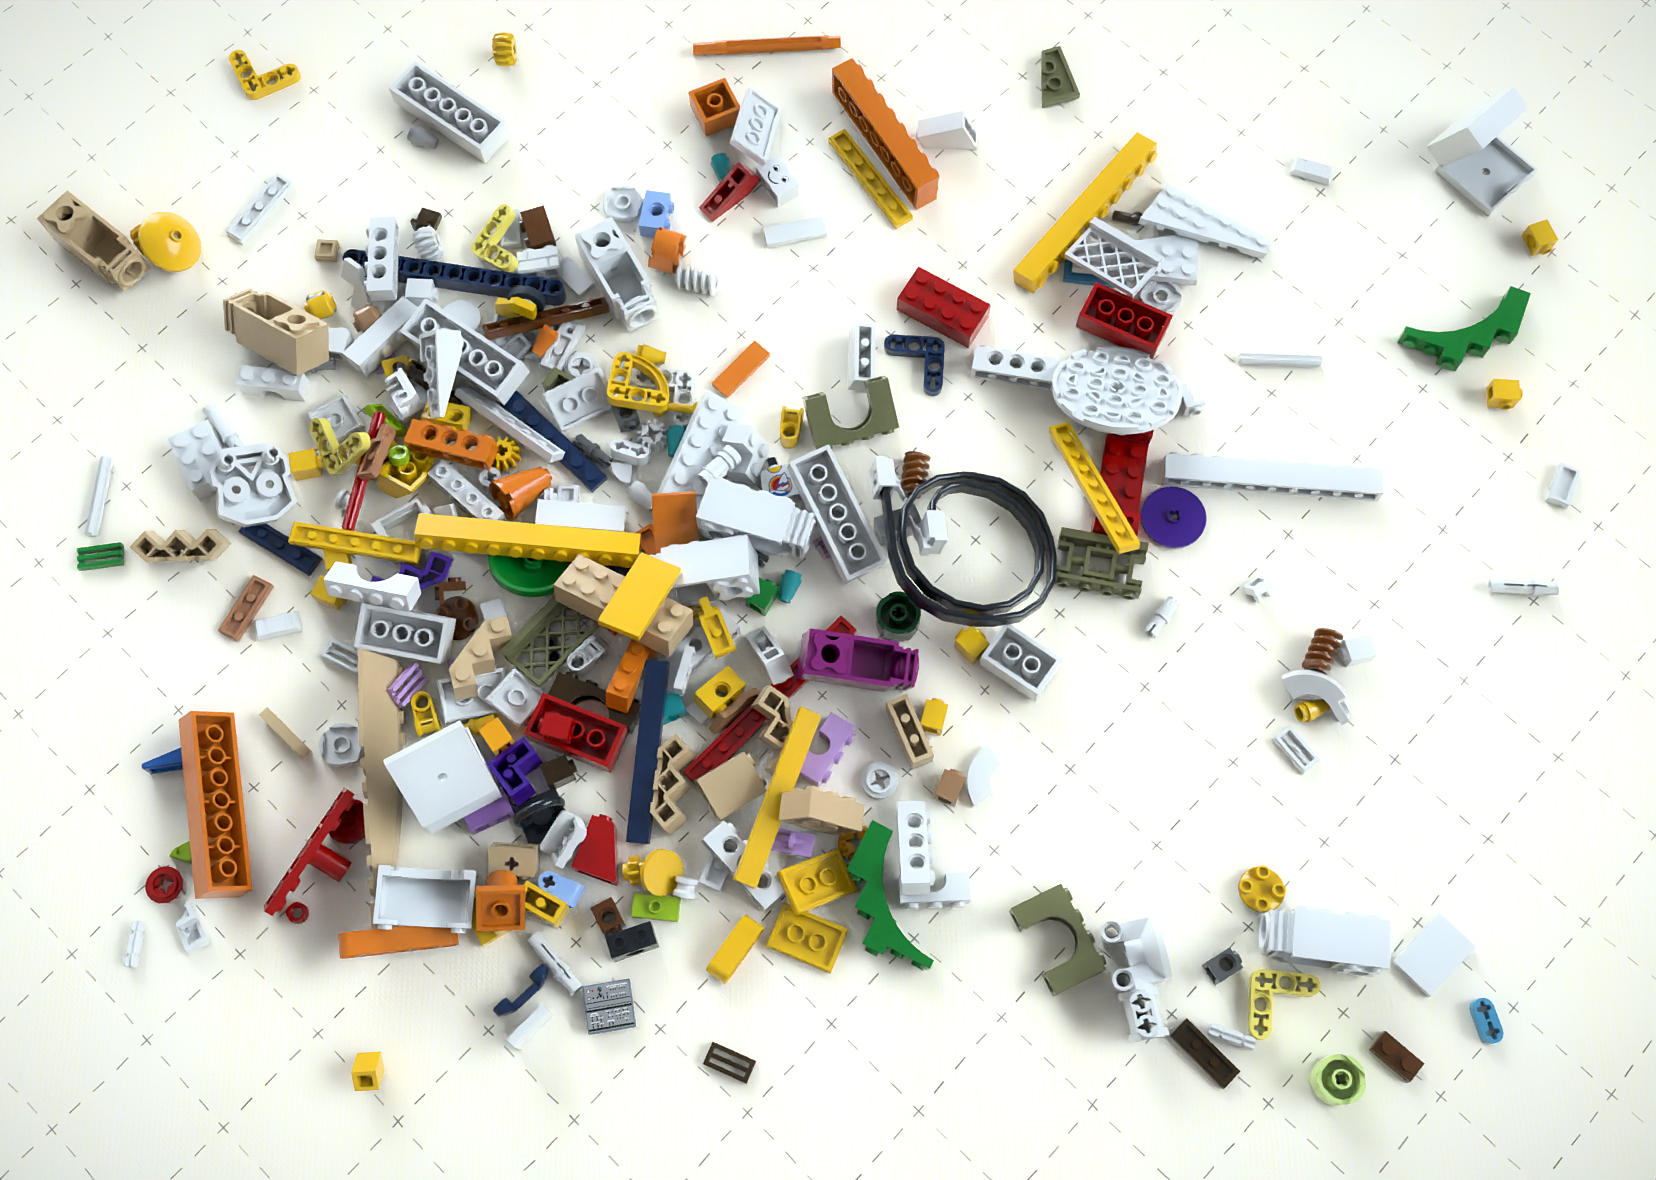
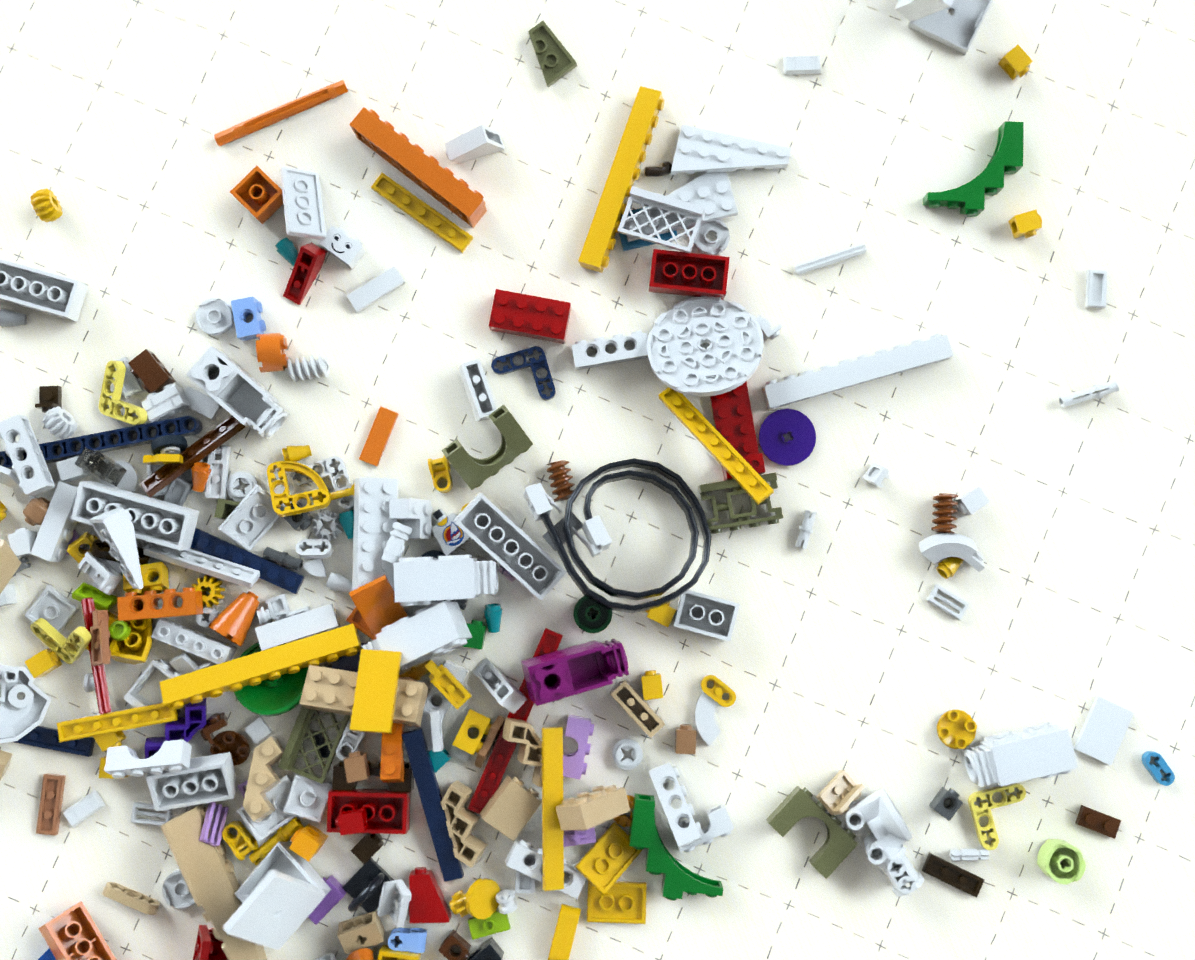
camera: 20 degrees left, 15 degrees up
(450, 295) = (101, 466): none -> clear smoke brick
(512, 767) = (328, 862): dark purple brick -> none
(584, 677) = (356, 767): none -> medium nougat brick
(1006, 749) = (718, 690): none -> yellow plate
(1102, 906) = (839, 793): none -> tan bracket

